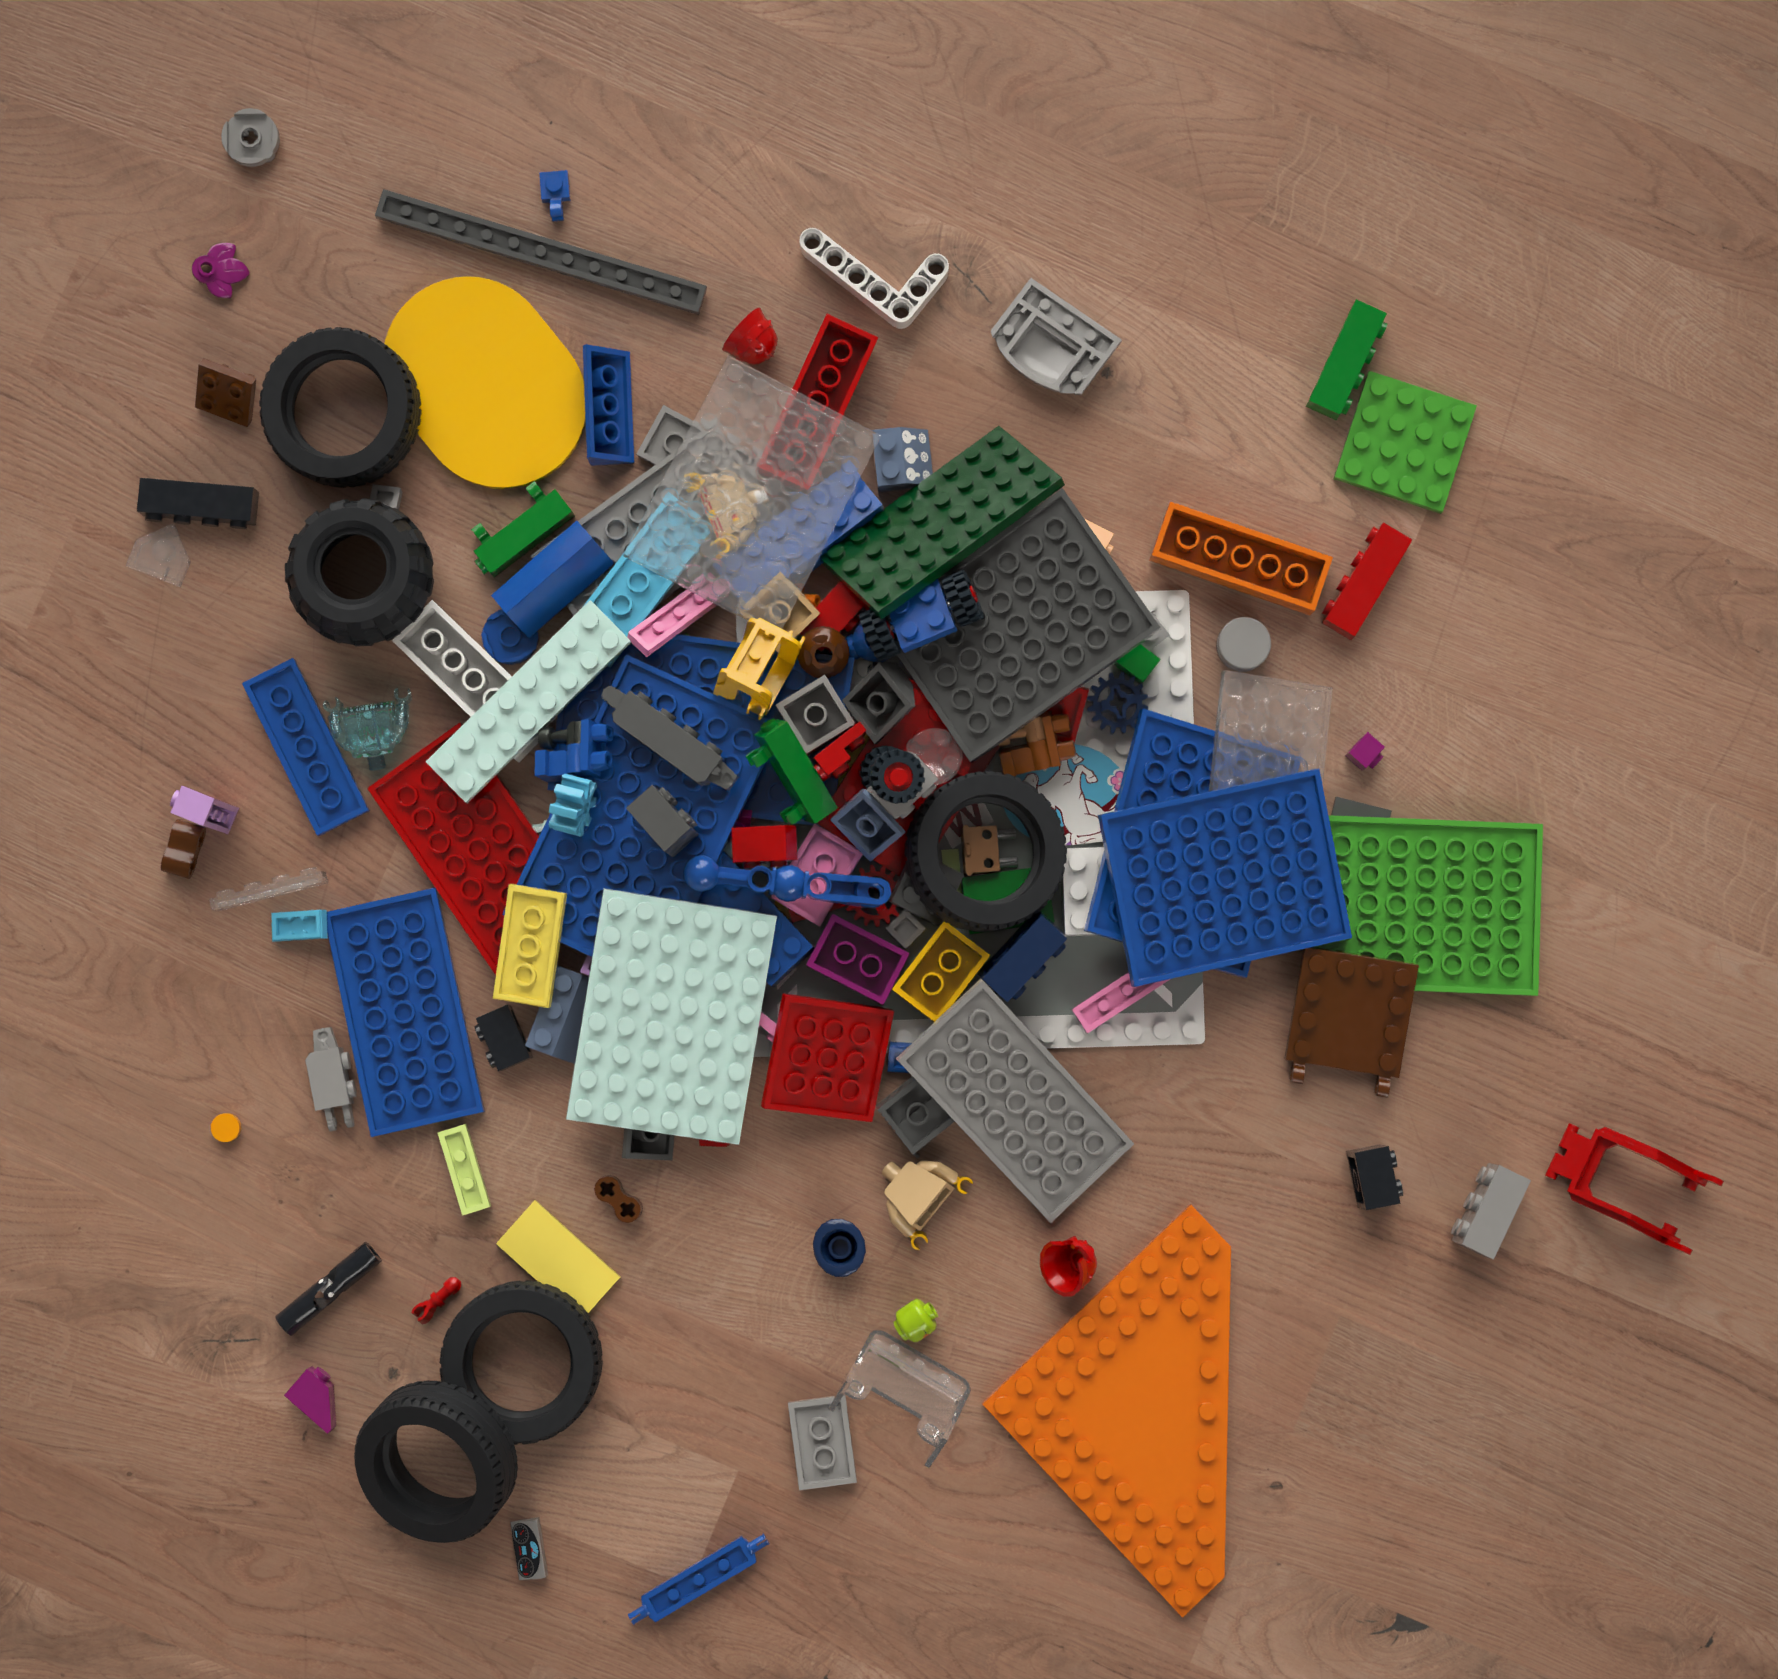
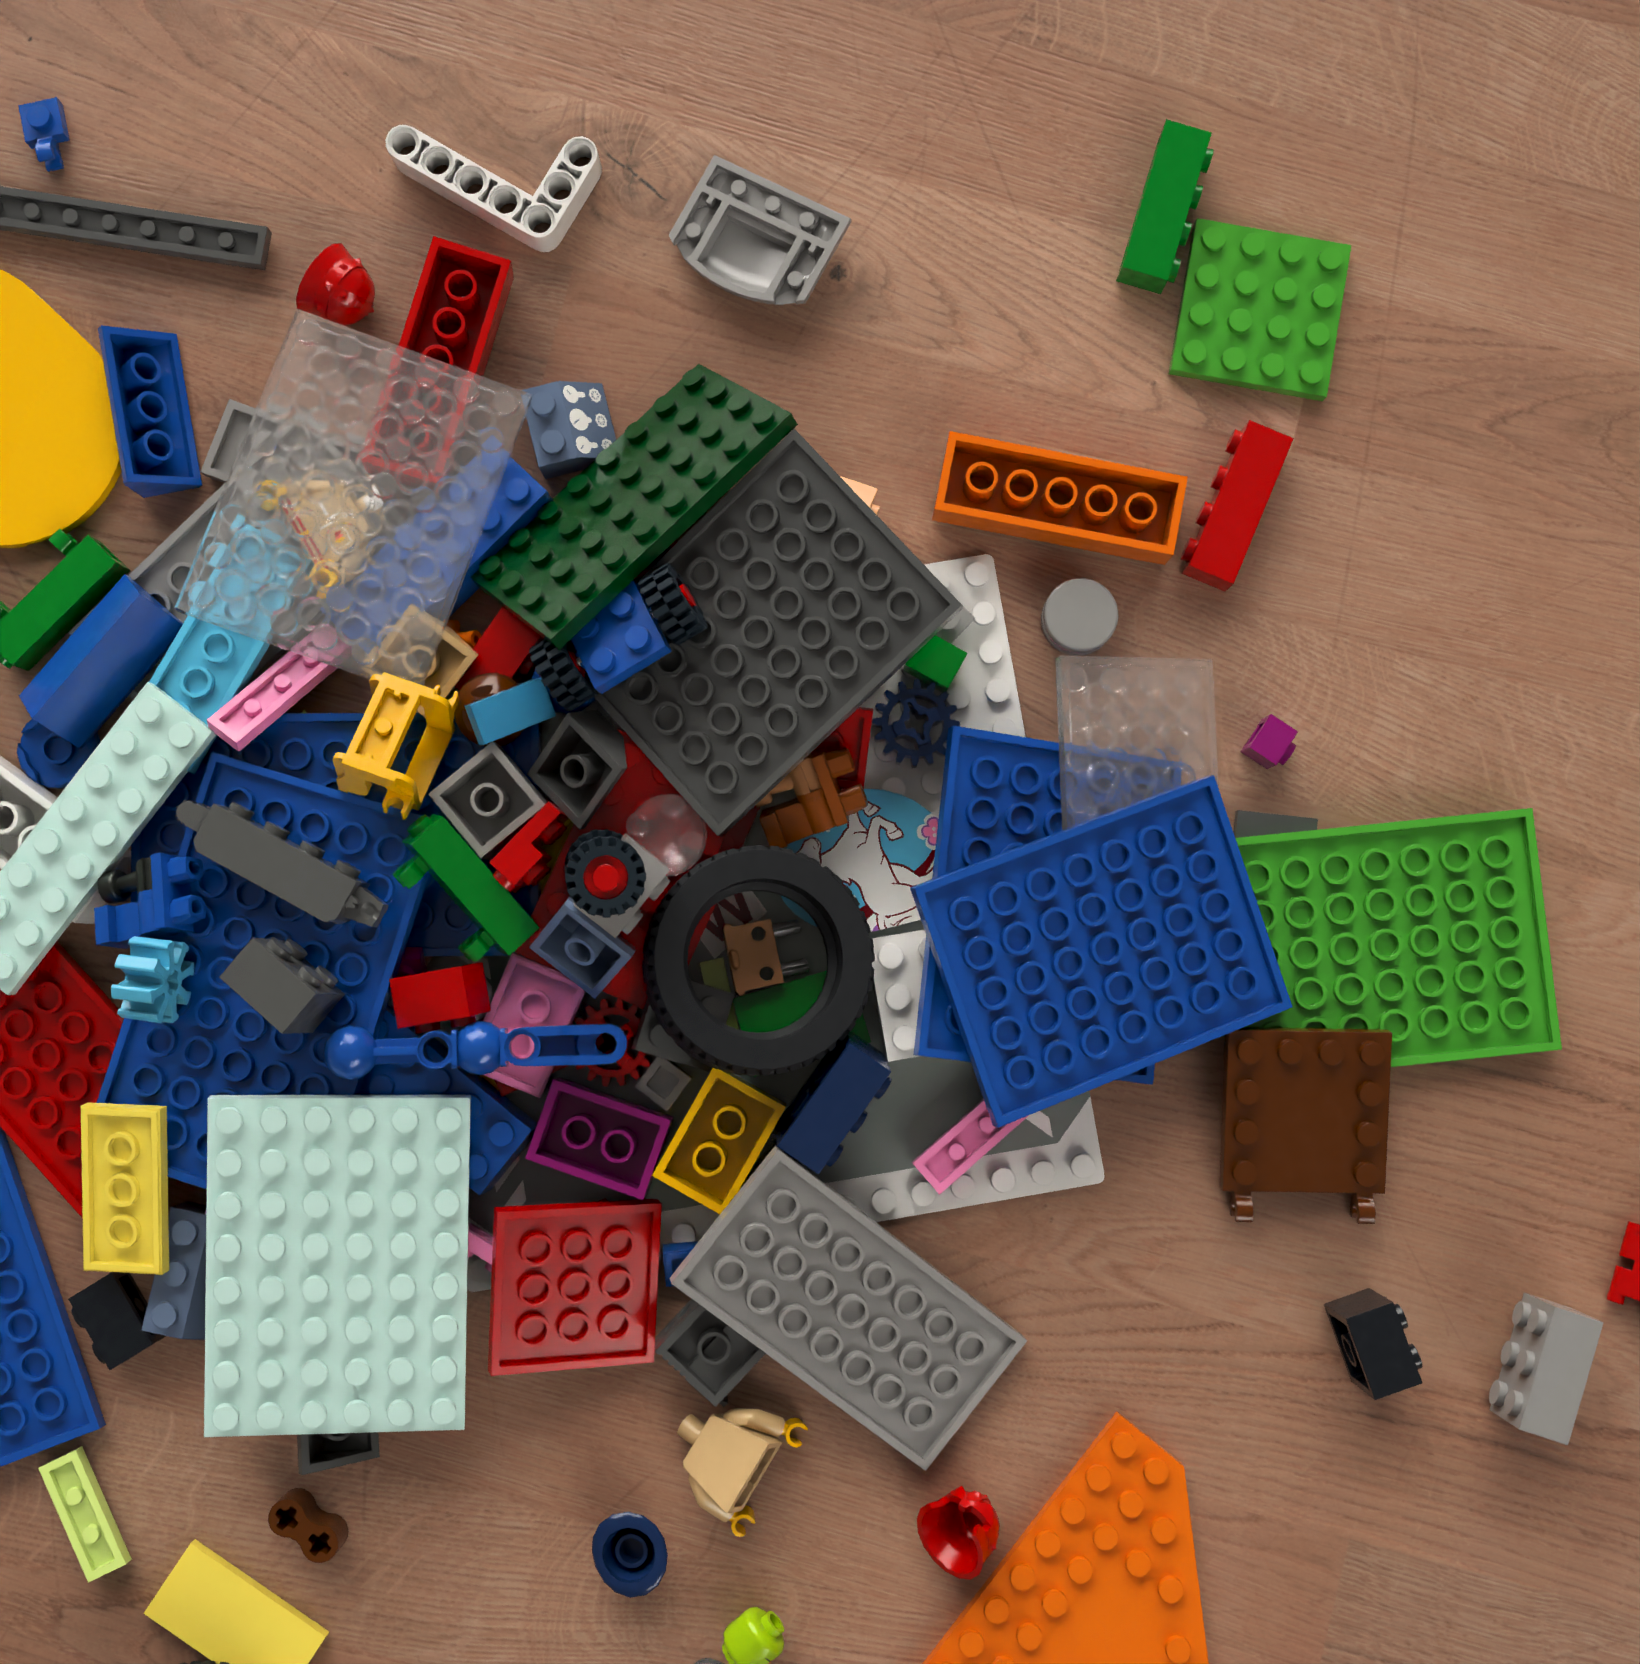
camera: 10 degrees left, 0 degrees up
(839, 655) = (510, 711): none -> dark azure tile

